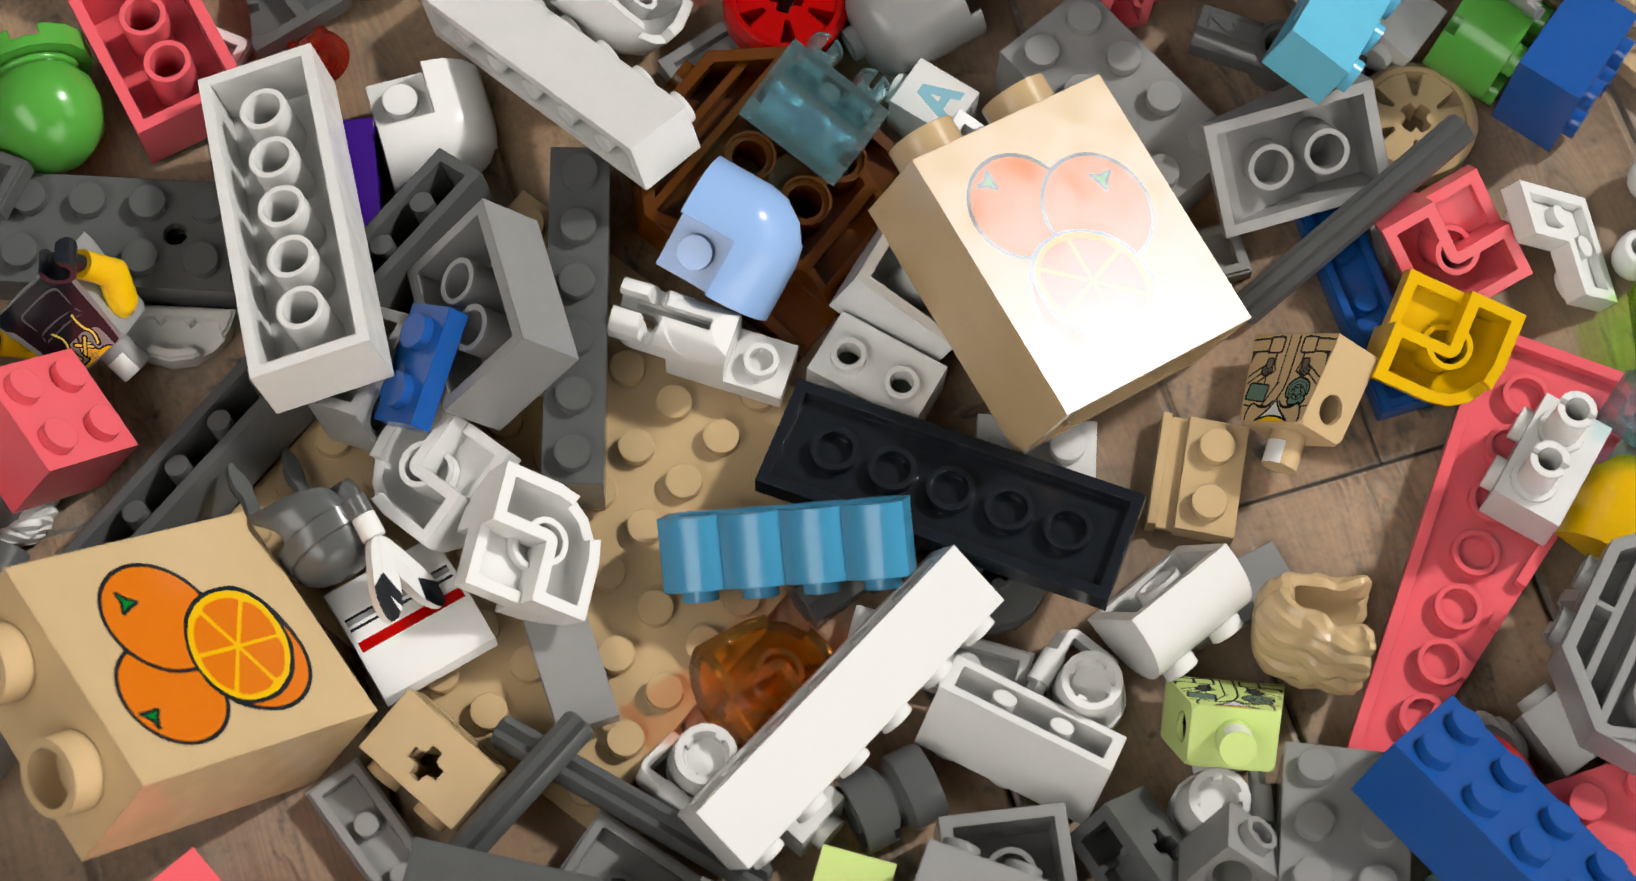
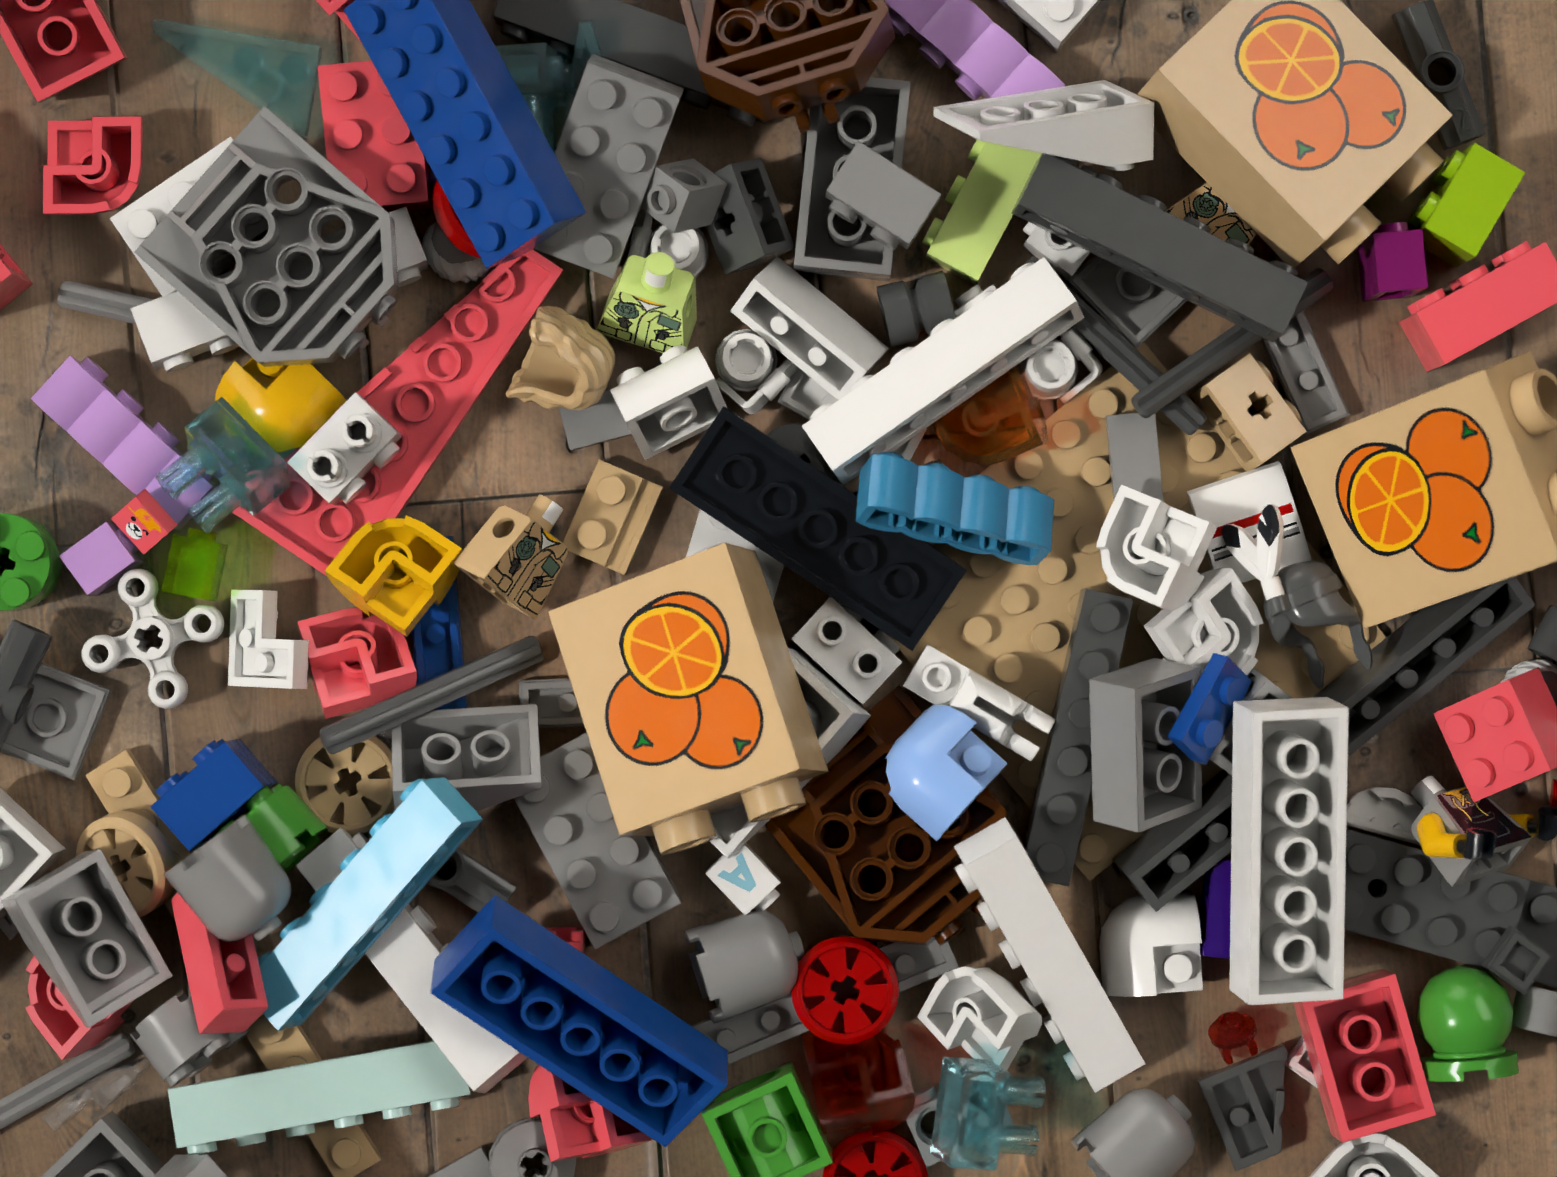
camera: 160 degrees left, 20 degrees up
(817, 109) = (854, 861): clear light blue brick -> none

